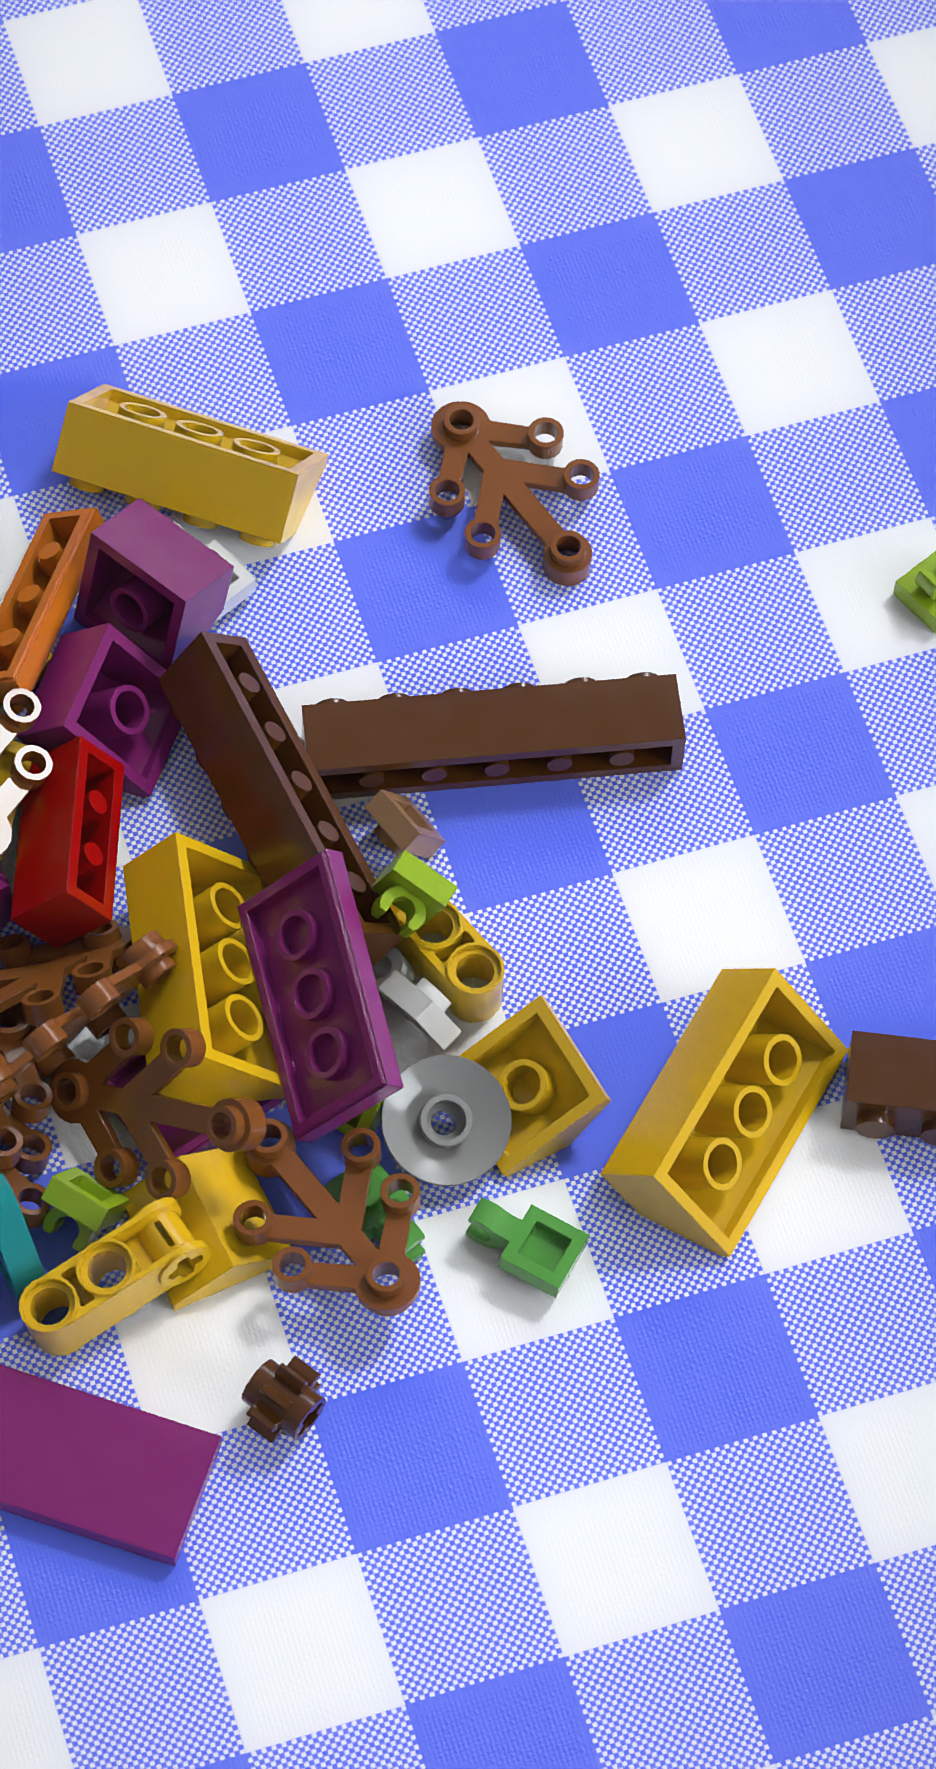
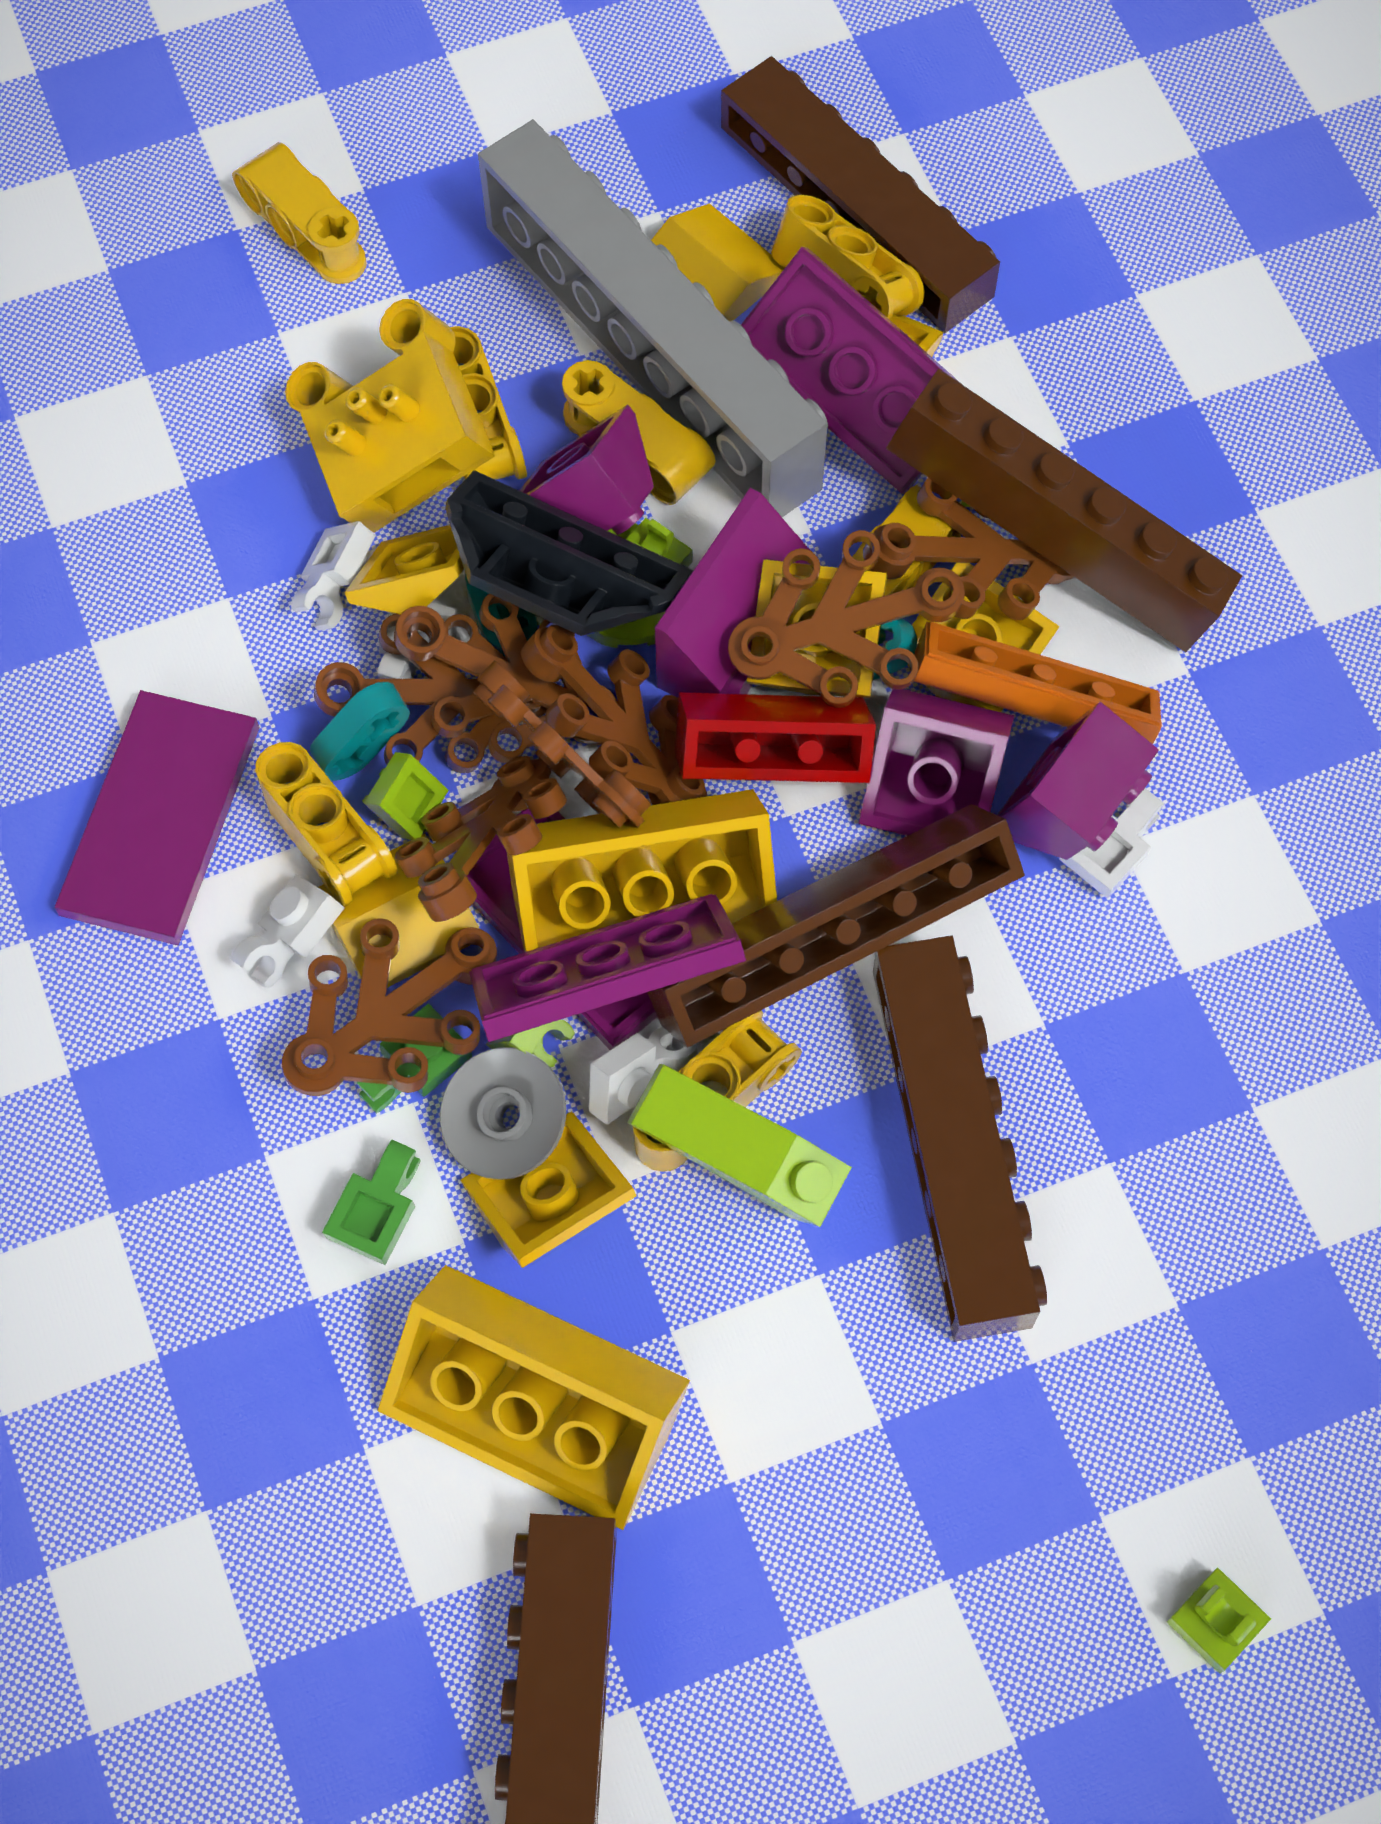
camera: 90 degrees right, 5 degrees up
(188, 464) = (1245, 818): yellow slope -> none
(216, 1313) = (292, 924): none -> white plate
(283, 1399) = (204, 984): reddish brown gear -> none
(403, 825) = (839, 1054): medium nougat plate -> none
(412, 889) = (724, 1042): lime tile -> none
(509, 895) = (740, 1146): none -> lime slope
(511, 482) = (1278, 1132): dark orange plant -> none

